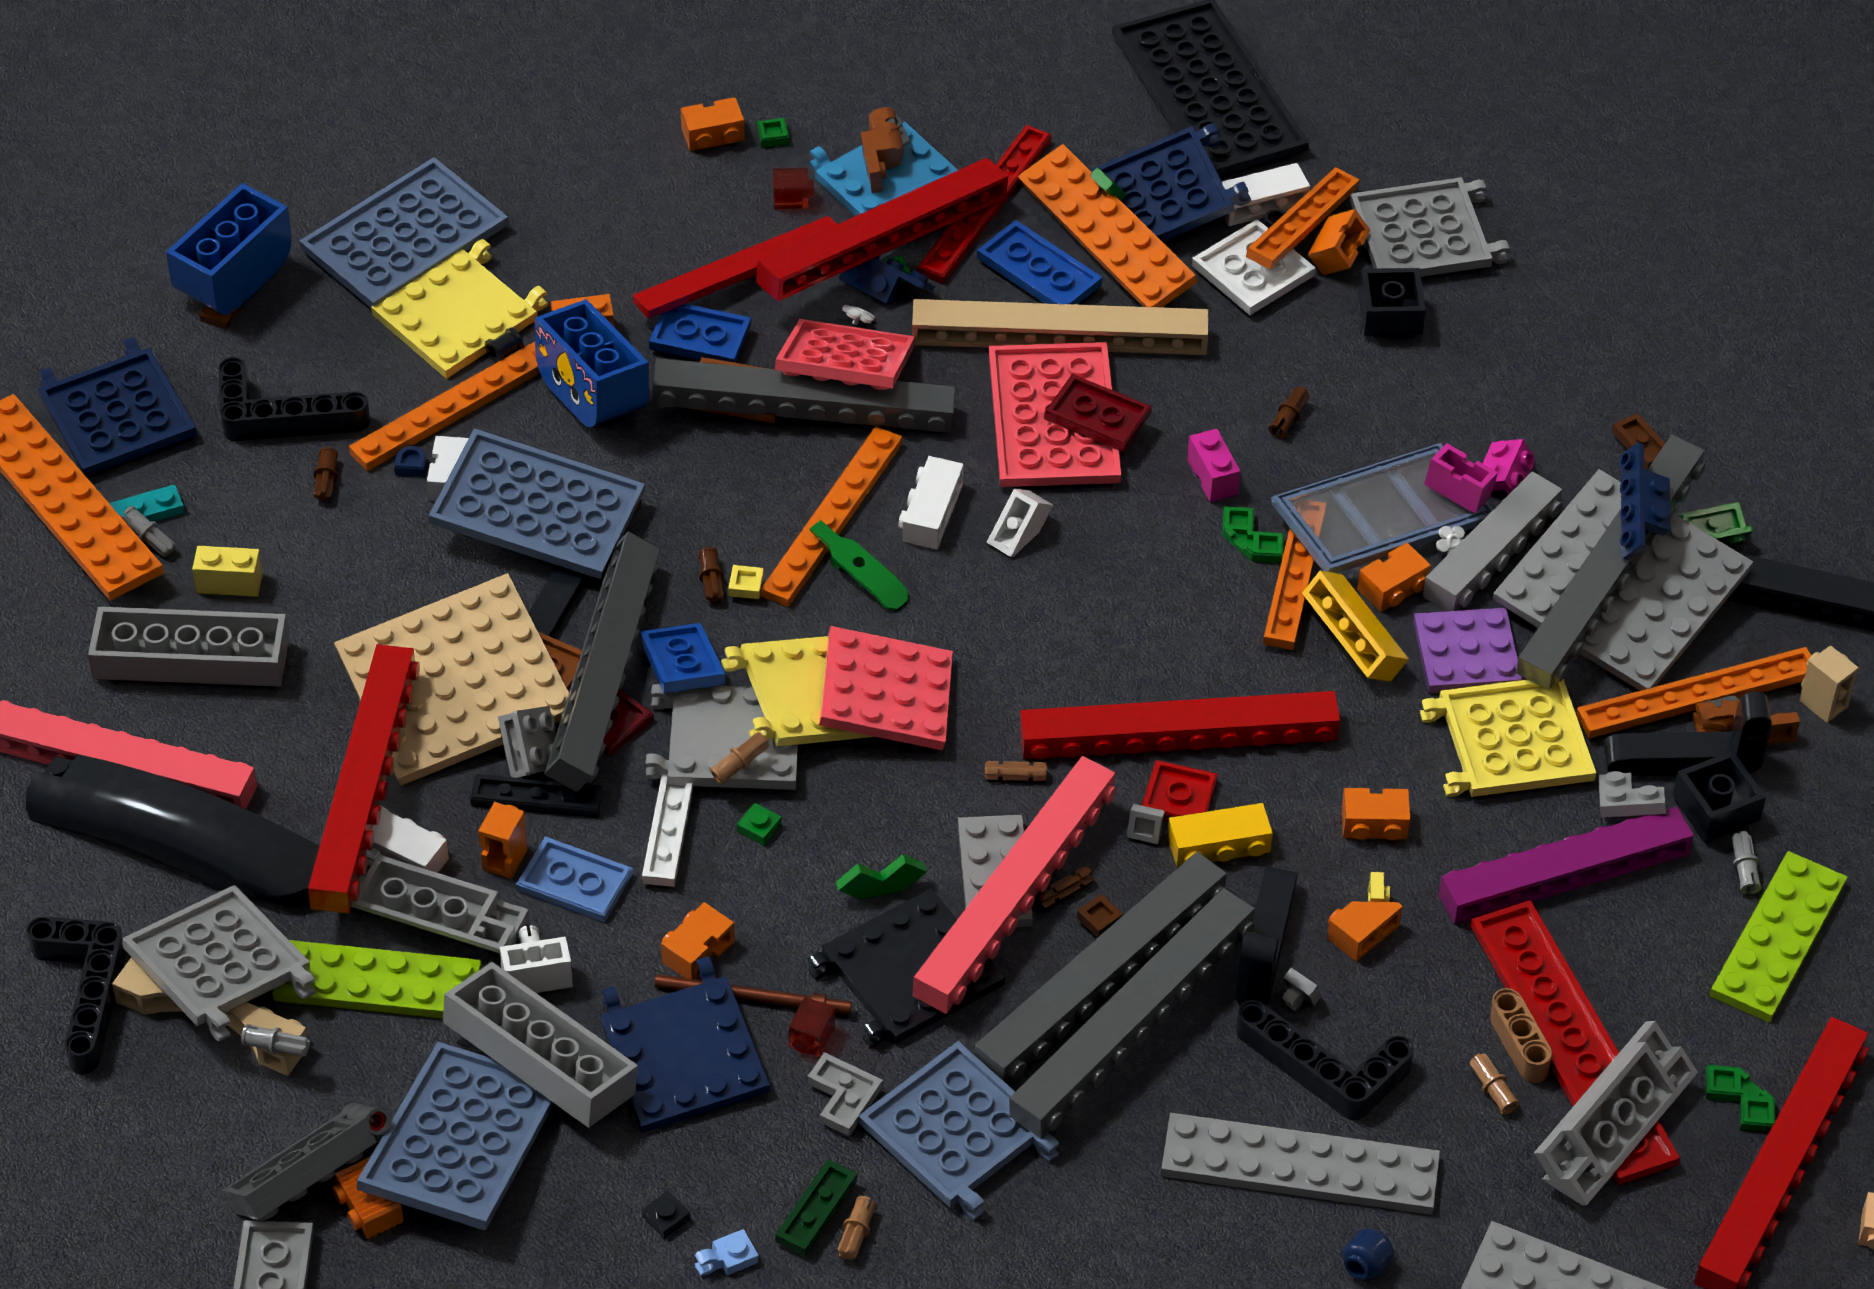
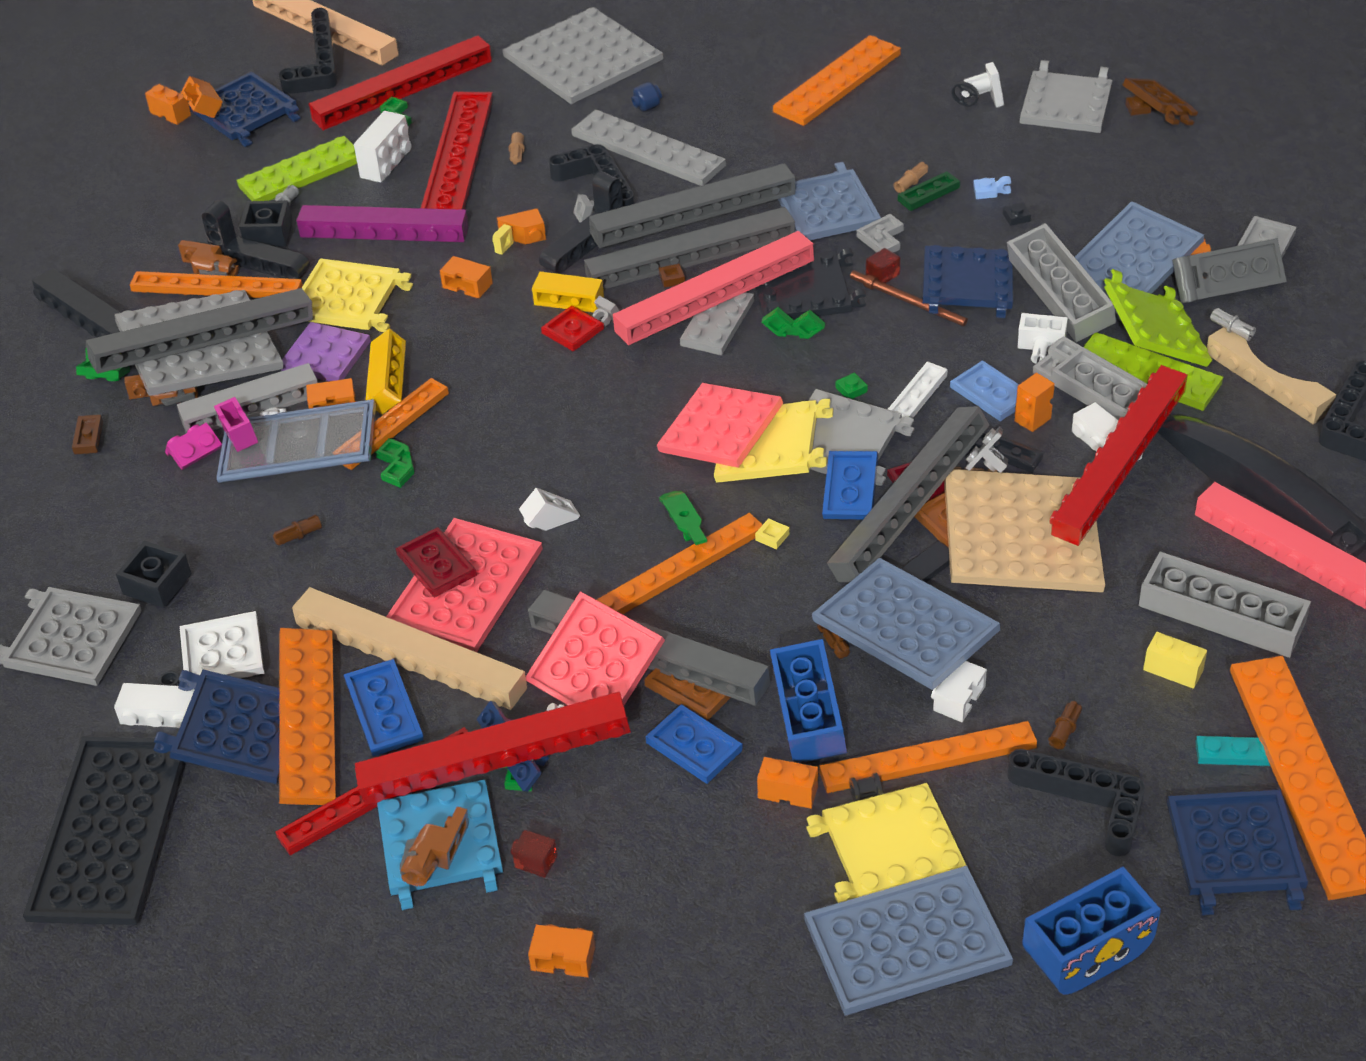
camera: 150 degrees left, 5 degrees down
(148, 531) = (1234, 719): light grey axle -> none
(218, 958) = (1259, 383): light grey plate -> none
(383, 1020) = (1156, 321): none -> lime plate
(410, 461) = (988, 717): dark blue tile -> none
(700, 935) = (929, 327): orange brick -> none
(711, 574) = (794, 549): reddish brown axle -> none
(719, 273) = (626, 787): red tile -> none
(739, 758) = (850, 395): medium nougat axle -> none
(773, 132) = (509, 932): green tile -> none
(931, 502) = (601, 544): white brick -> none
(1015, 770) = (665, 367): medium nougat axle -> none
(1108, 184) = (277, 736): green tile -> none
(1179, 725) = (545, 356): red brick -> none
(1213, 465) = (384, 503): dark pink brick -> none
(1302, 218) = (152, 662): orange plate -> none
(1338, 241) = (138, 641): orange brick -> none
(1520, 1048) = (484, 159): medium nougat beam -> none
(1615, 1114) = (471, 105): light grey slope -> none
(1621, 800) = (321, 236): light grey plate -> none
(1643, 502) = (160, 323): dark blue bracket -> none
(1677, 982) = (382, 146): none -> white brick
(1828, 683) = (142, 250): tan brick -> none

